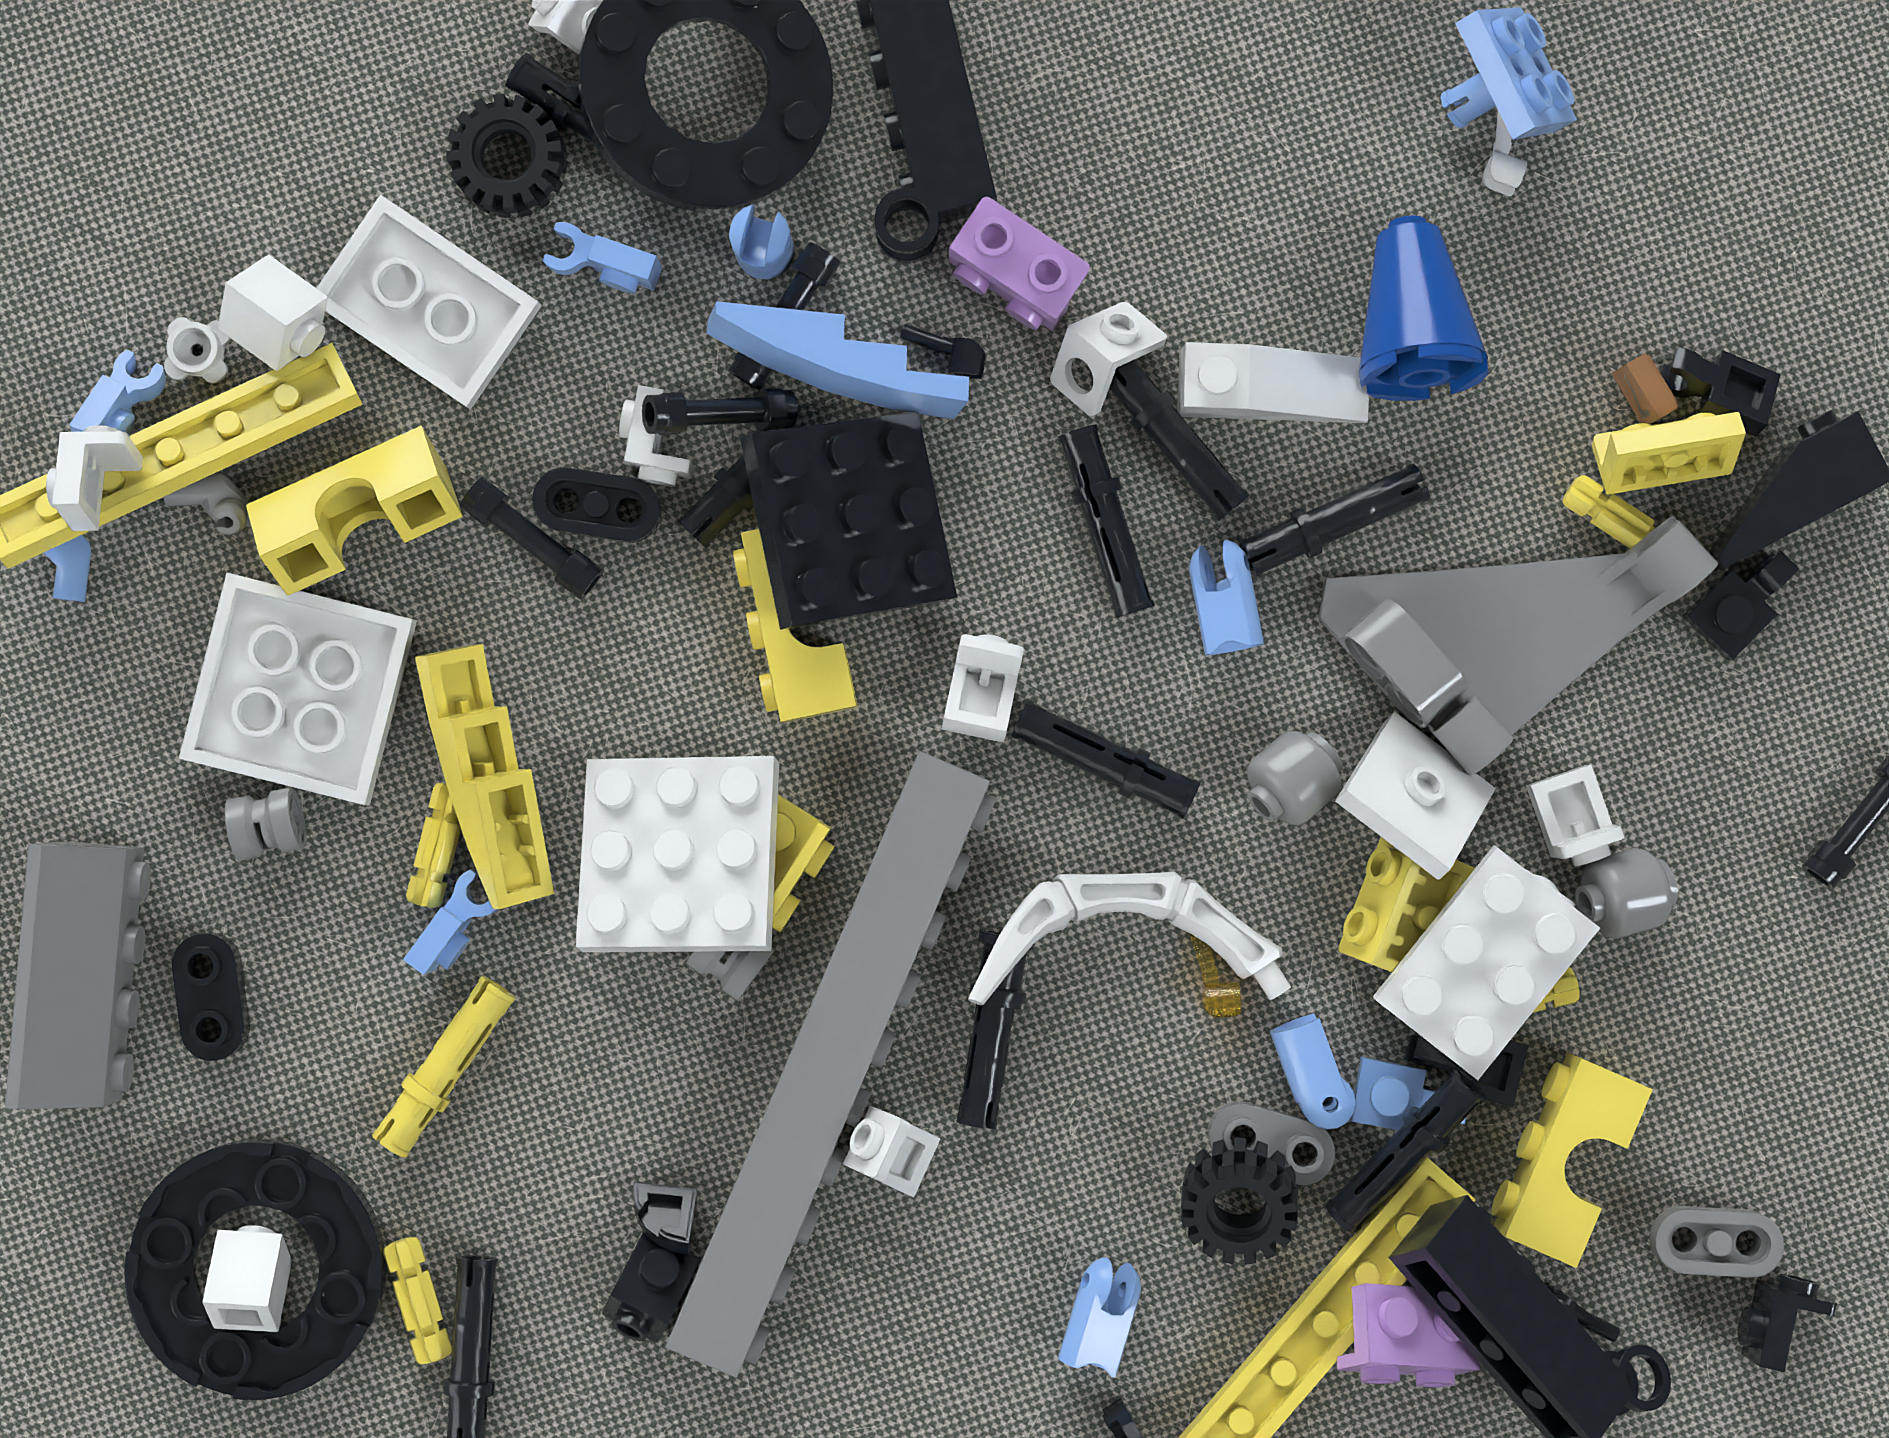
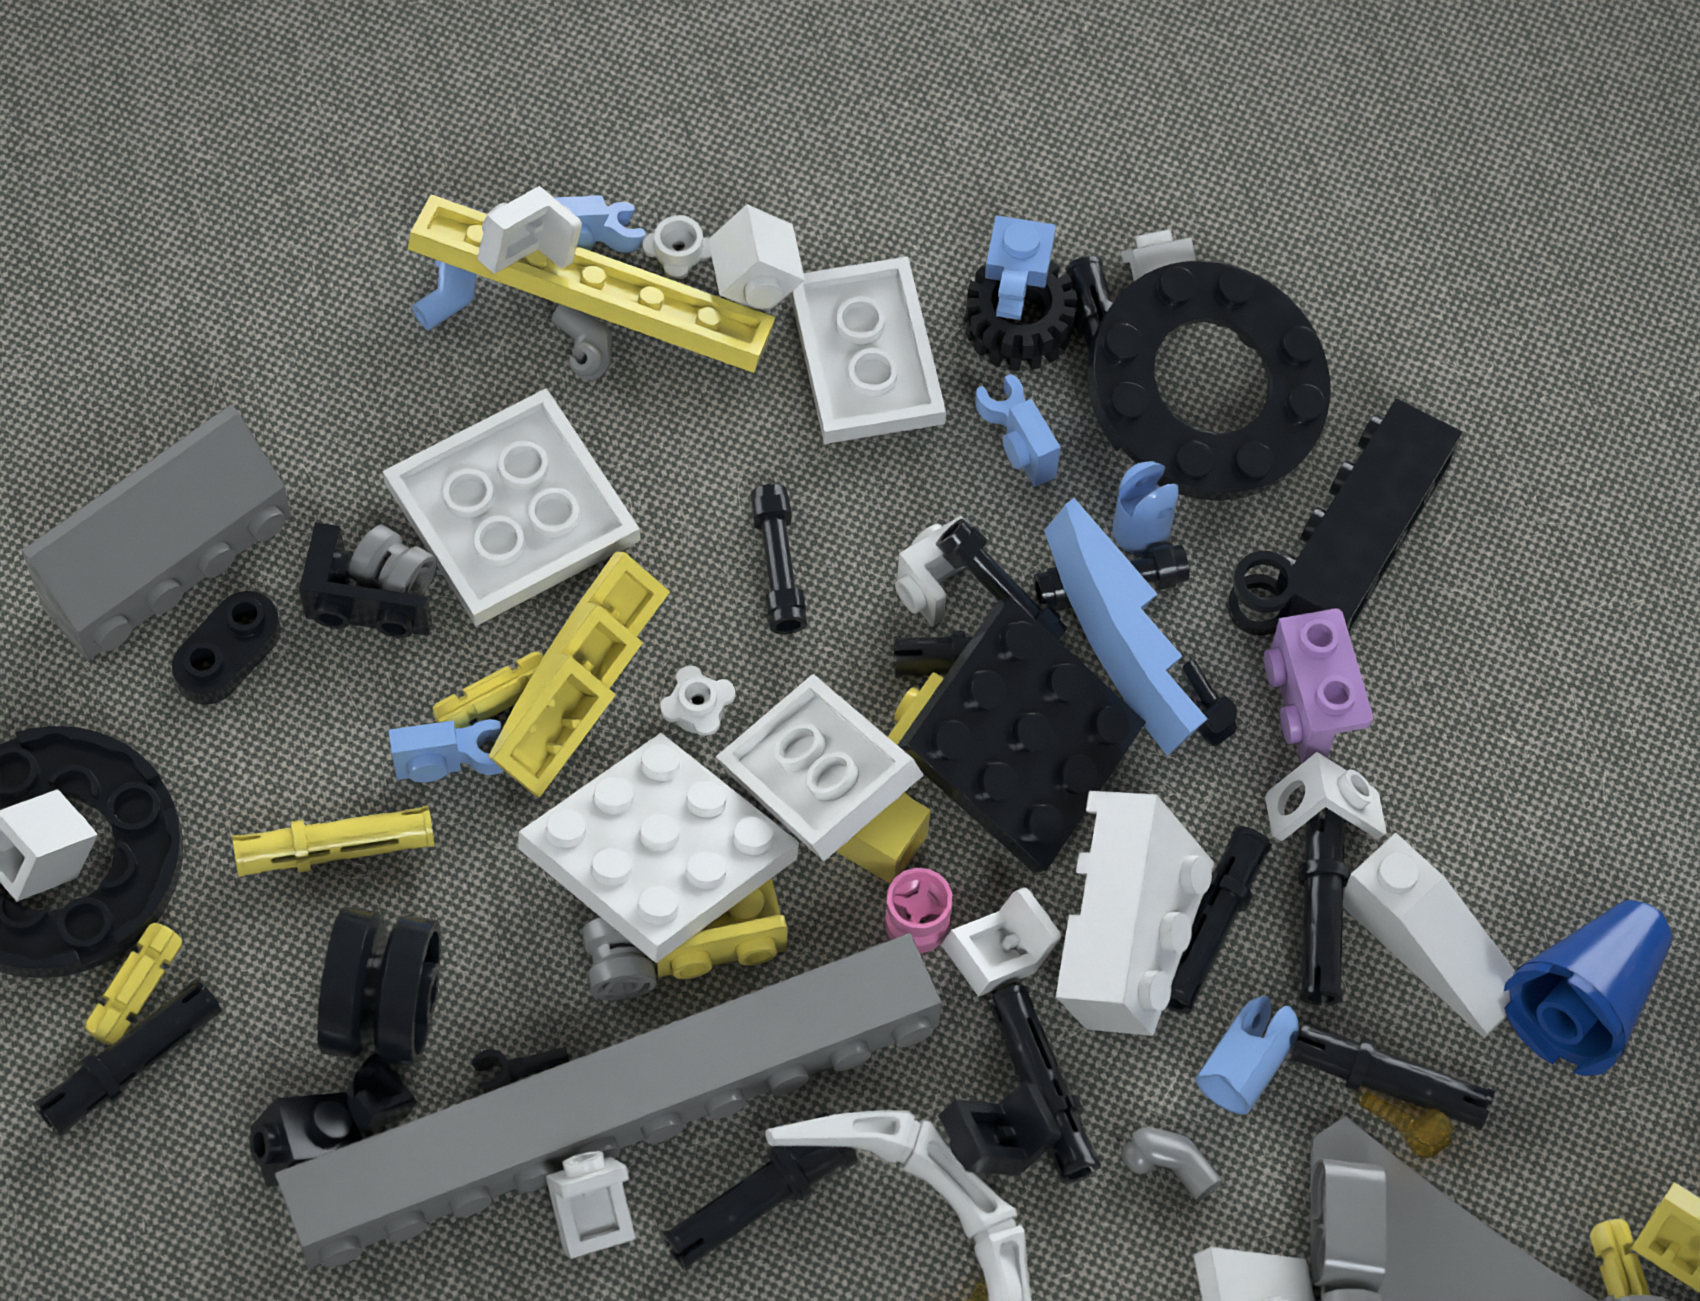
camera: 45 degrees right, 25 degrees down
(224, 875) = (336, 604): none -> black bracket
(306, 523) = (636, 407): light yellow arch -> none
(470, 122) = (1018, 258): none -> light blue plate
(597, 1153) = (379, 986): none -> black wheel
(598, 504) = (849, 581): black plate -> none
(604, 714) = (697, 718): none -> white plate
(734, 689) = (819, 766): none -> white plate
(739, 1095) = (515, 1067): none -> black hand
(893, 716) = (920, 895): none -> bright pink wheel
(1060, 585) = (1133, 915): none -> white wedge
(1118, 834) = (1001, 1135): none -> black bracket
(1235, 723) = (1174, 1152): none -> light grey arm
(1294, 777) = (1176, 1223): light grey head -> none
(1393, 541) = (1423, 1136): none -> clear yellow hand

